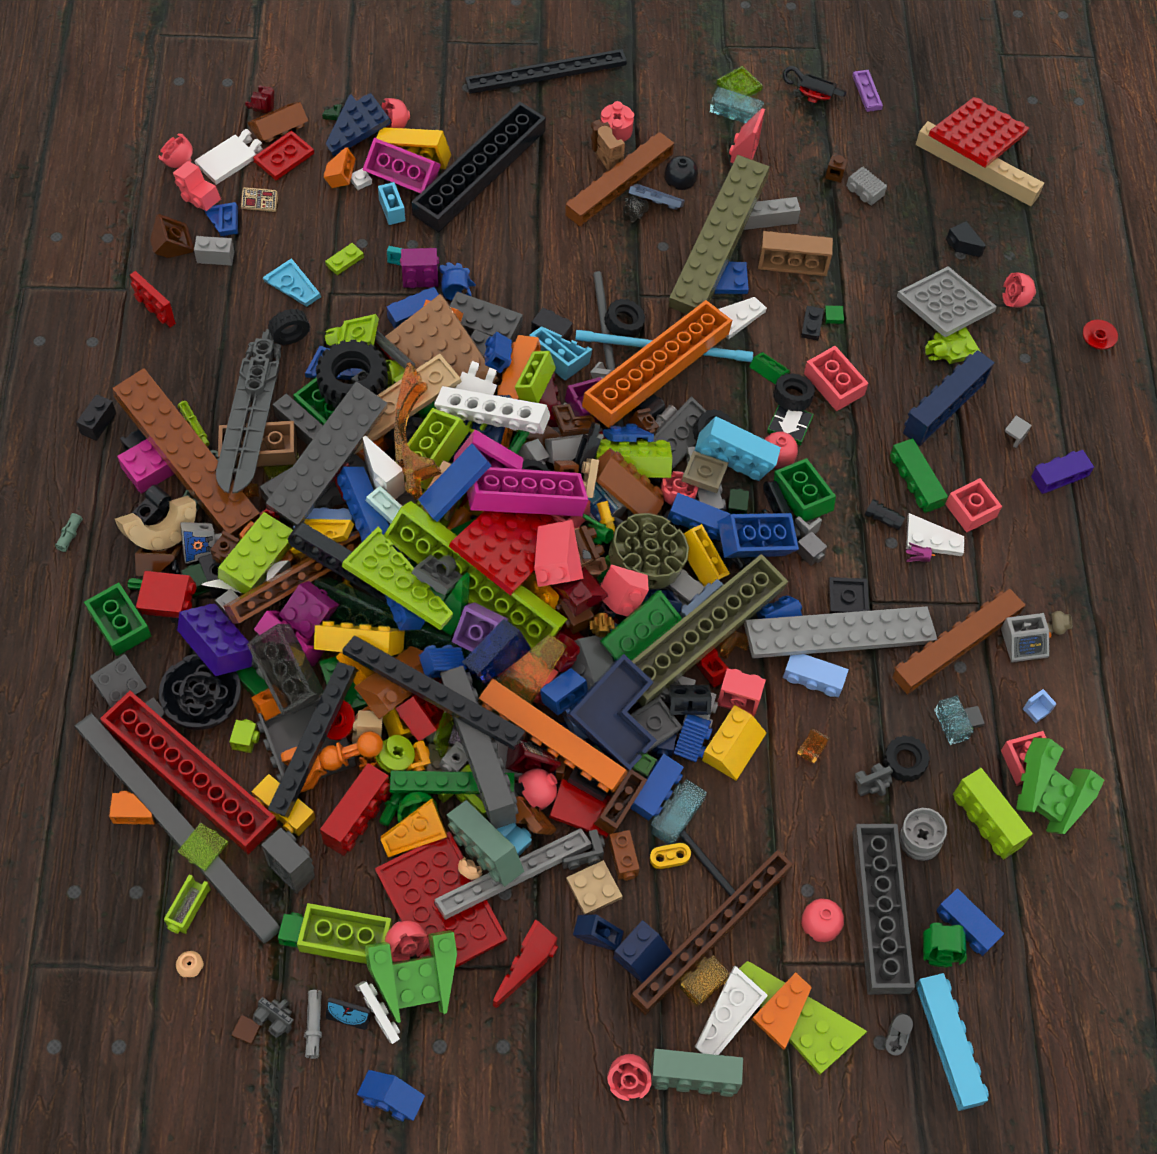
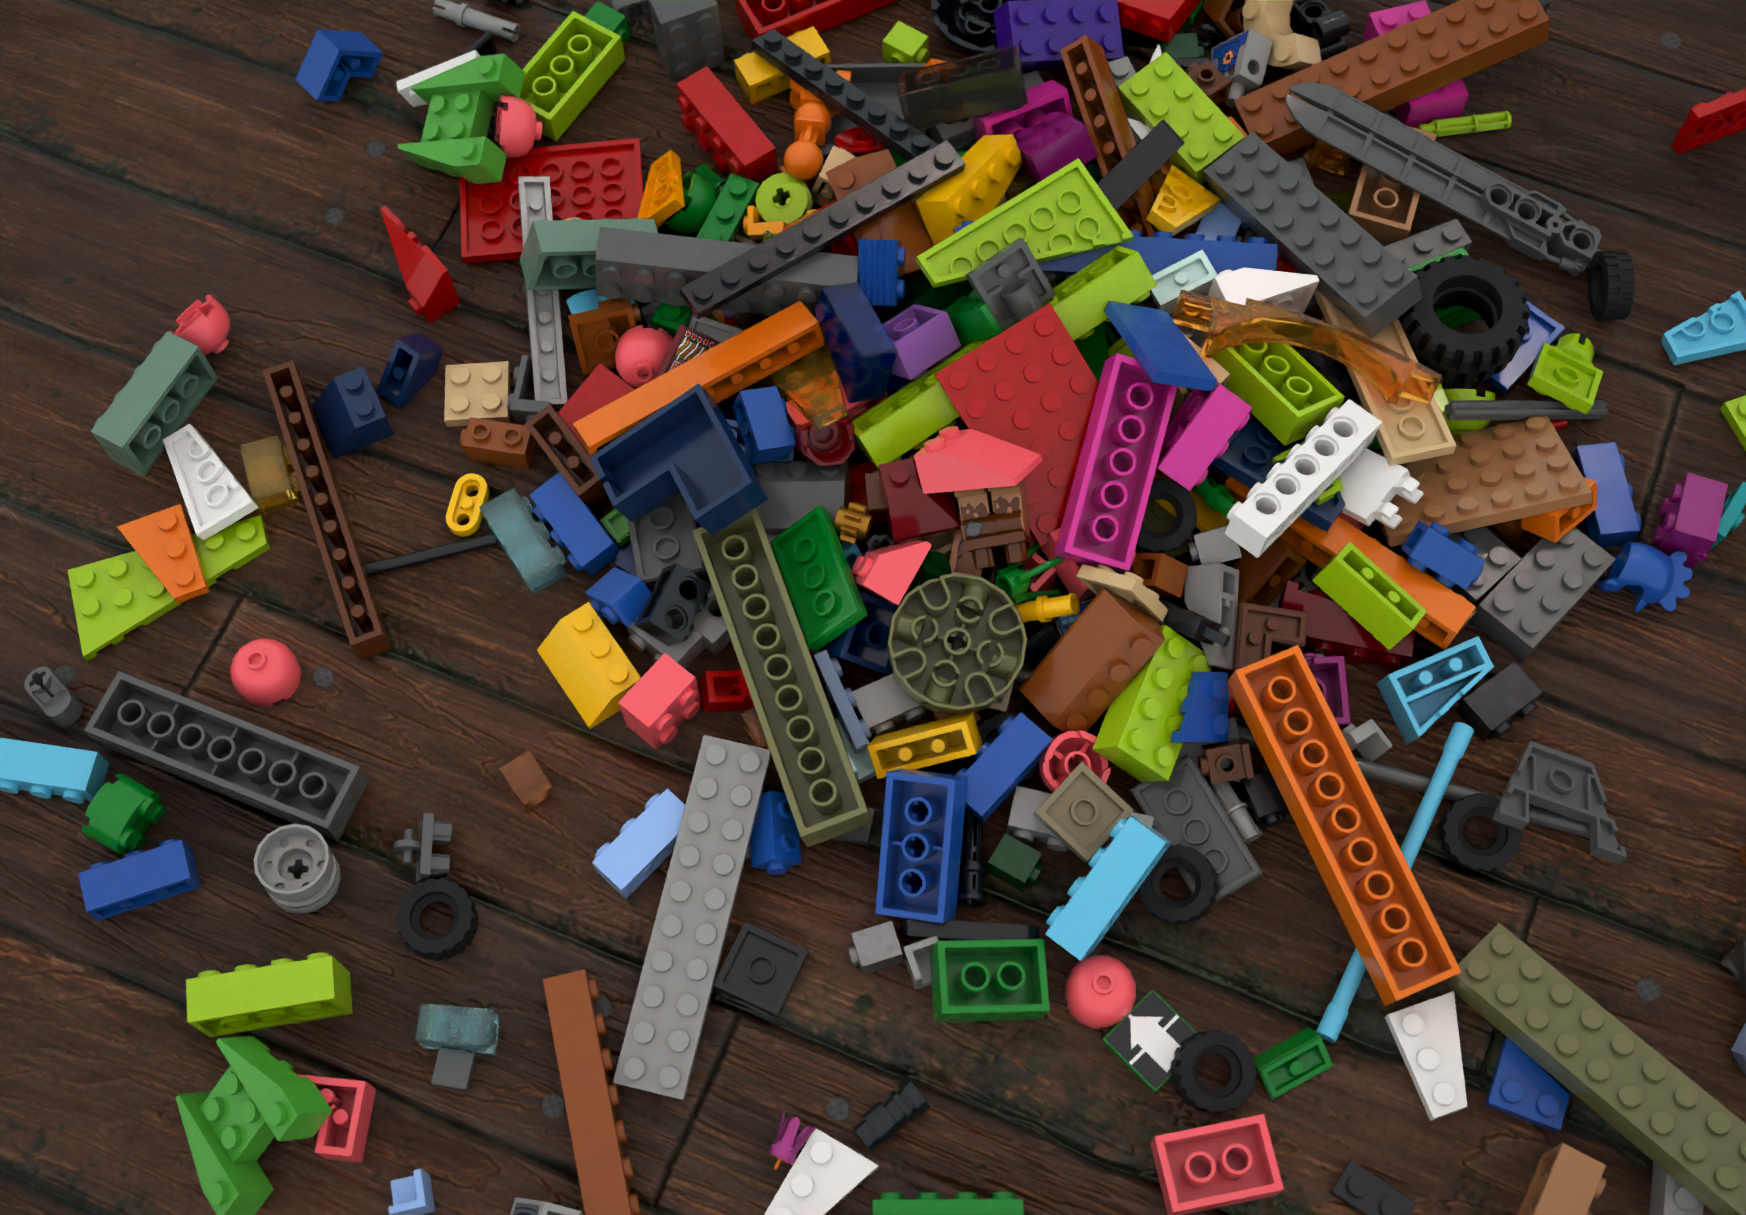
camera: 120 degrees right, 5 degrees up
(586, 292) = (1564, 787): none -> dark grey wing

